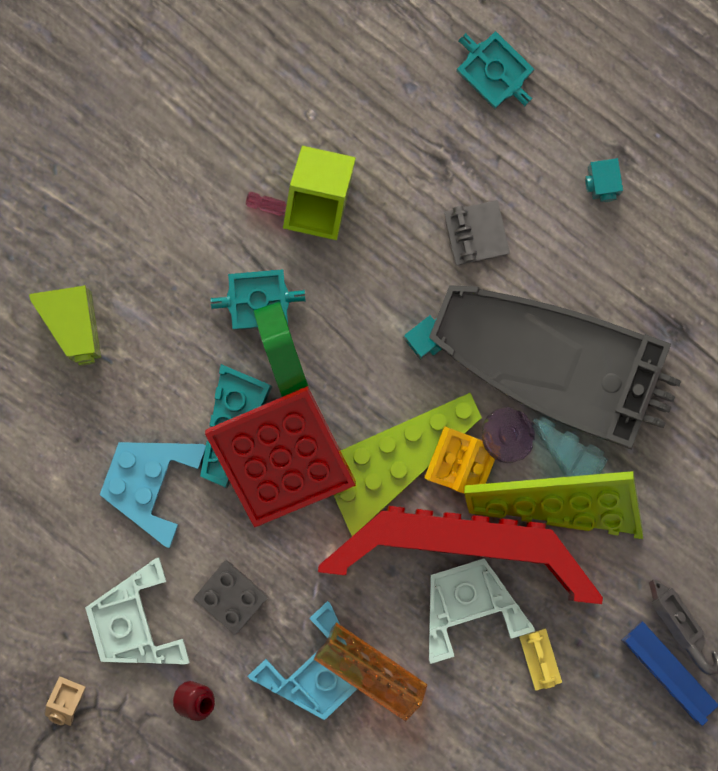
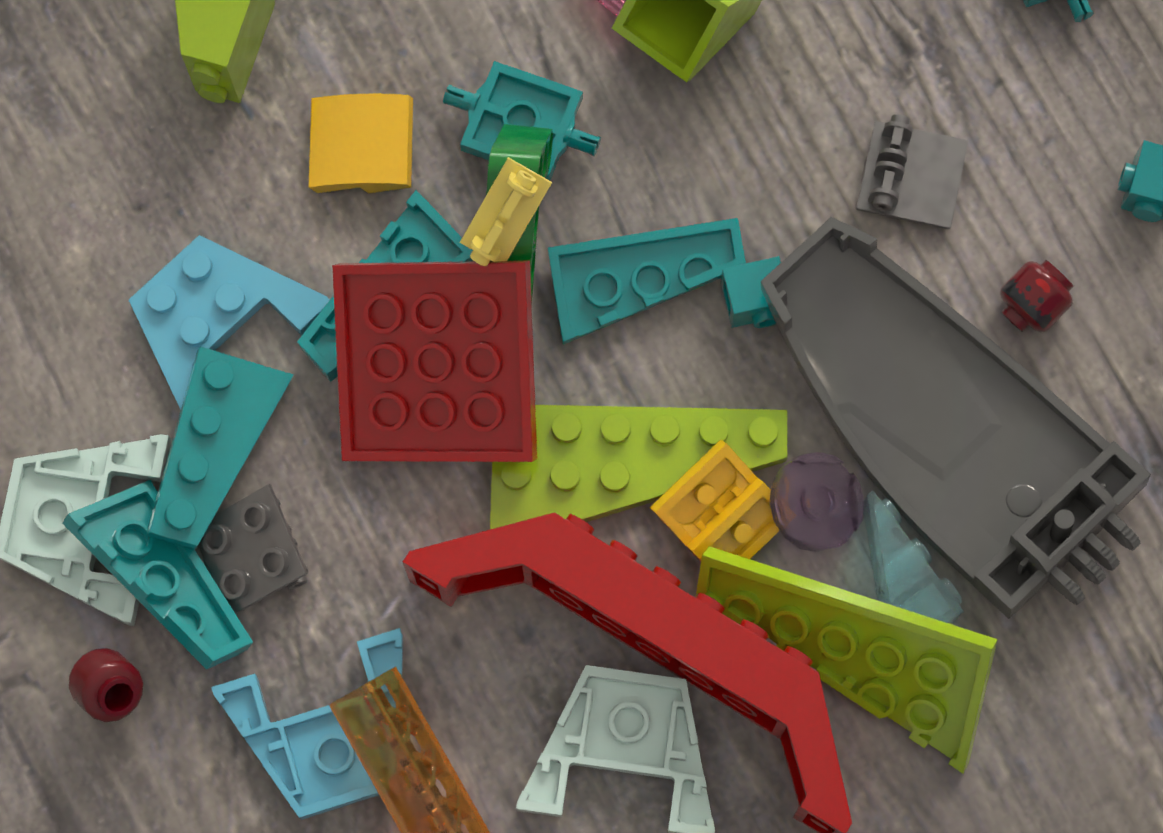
camera: 30 degrees right, 10 degrees down
(178, 351) = (361, 142): none -> yellow slope
(183, 549) = (215, 432): none -> teal wing
(192, 629) = (160, 574): none -> teal wing
(284, 370) = (505, 213): none -> light yellow hinge
(352, 359) = (630, 273): none -> teal wing
(571, 271) = (1036, 296): none -> dark red head

